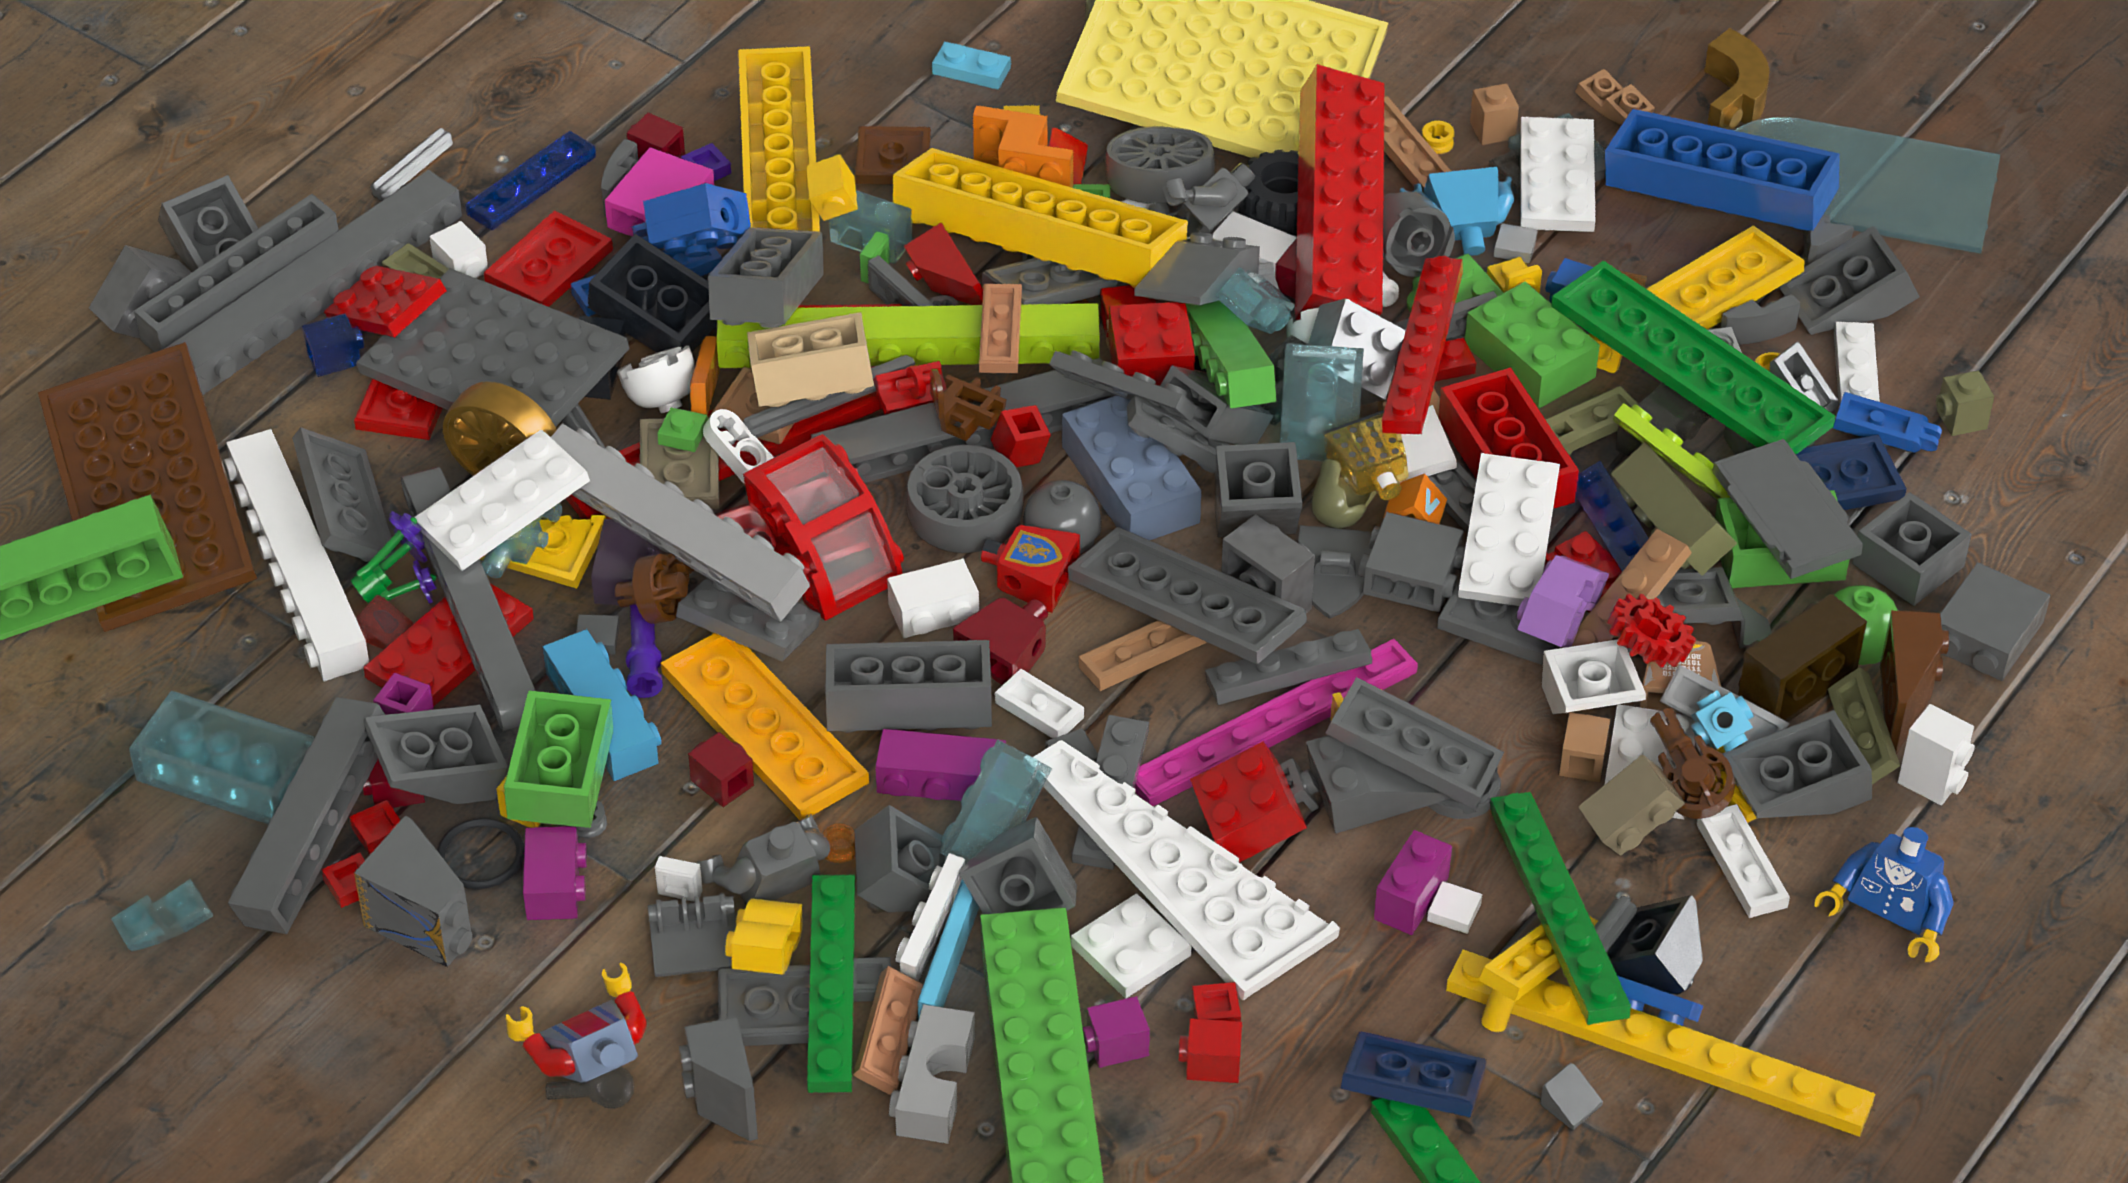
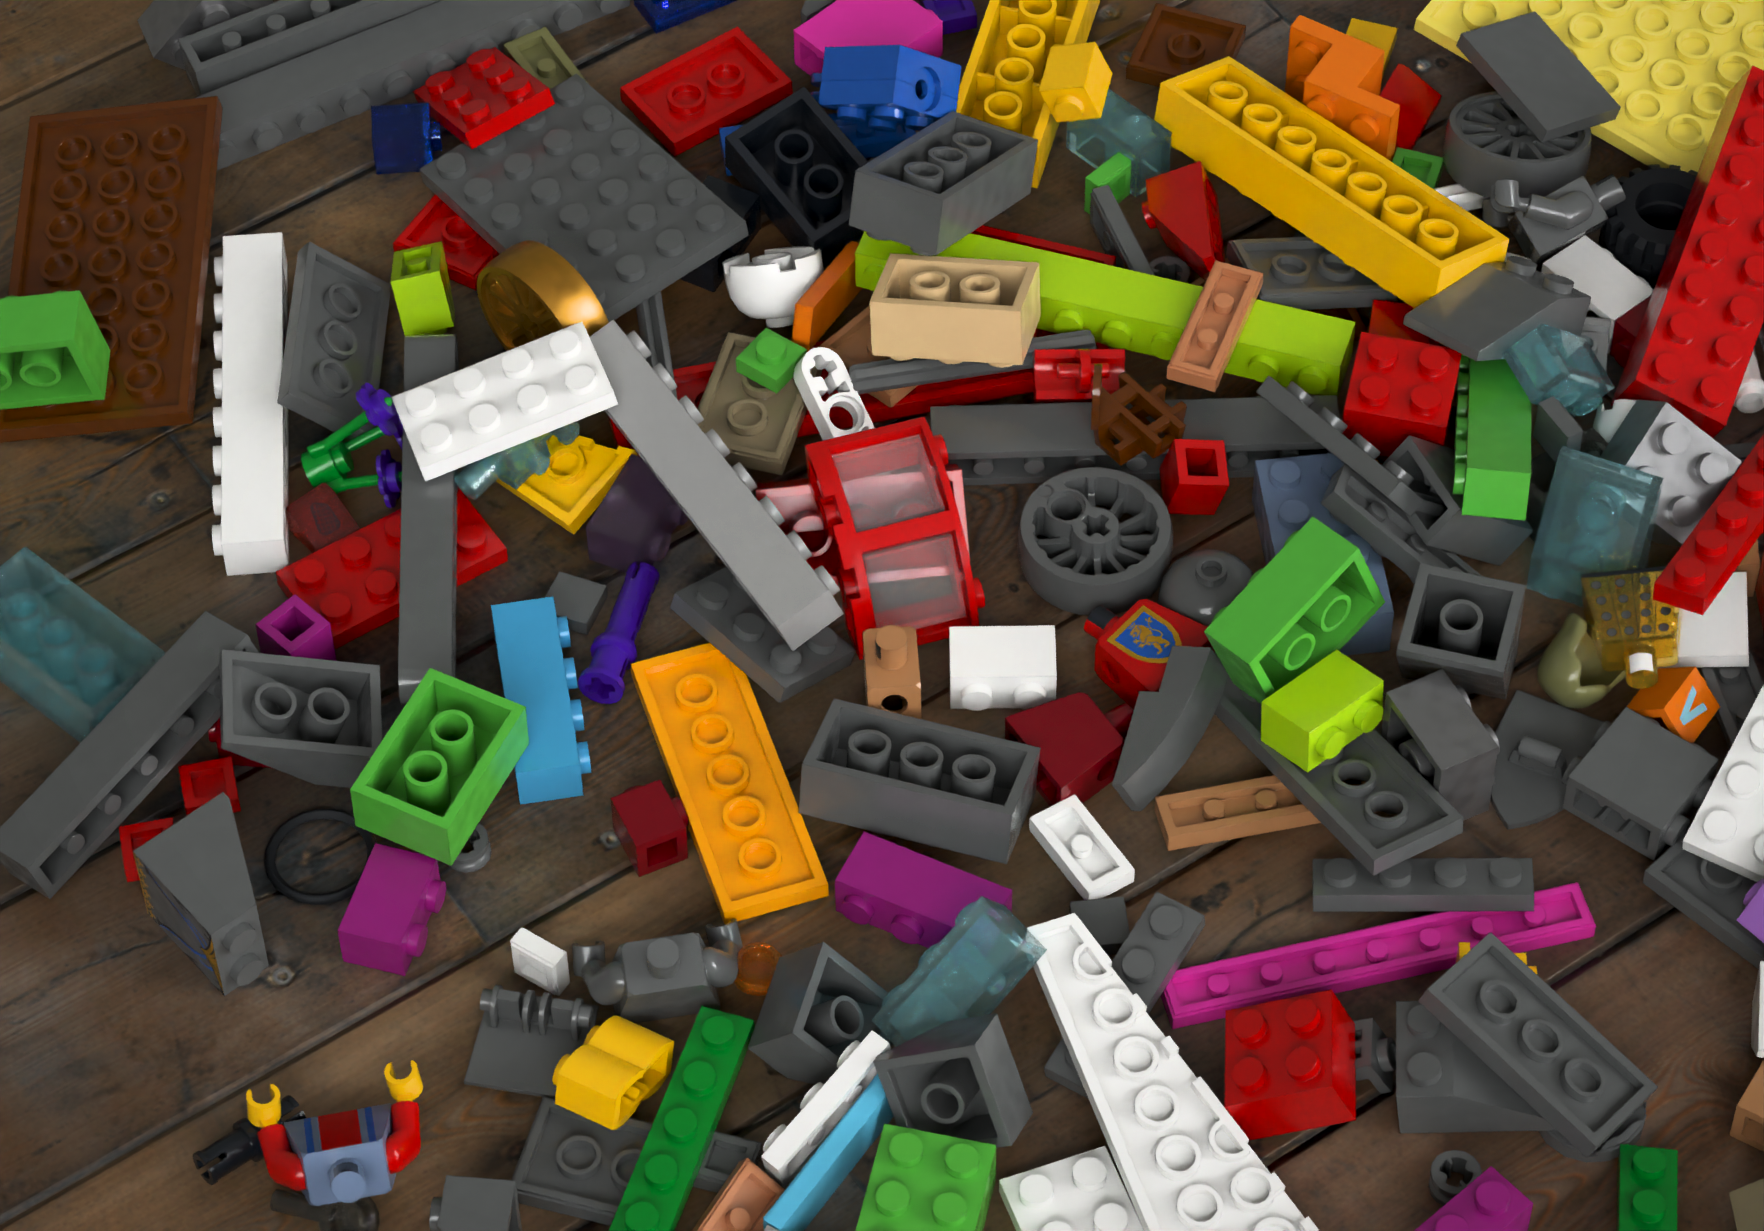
camera: 20 degrees right, 5 degrees up
(394, 445) = (423, 290): none -> lime slope
(459, 250) = (601, 53): white brick -> none
(508, 1060) = (239, 1145): none -> black pin
(656, 587) = (662, 570): reddish brown pin -> none
(856, 613) = (892, 668): none -> medium nougat torso
(1071, 603) = (1169, 724): none -> dark grey slope
(1139, 503) = (1294, 611): none -> bright green brick
(1160, 111) = (1538, 76): none -> dark grey tile
(1180, 565) = (1322, 711): none -> lime brick
(1272, 339) = (1556, 428): none -> dark grey tile
(1380, 841) = (1441, 1169): none -> dark grey bush

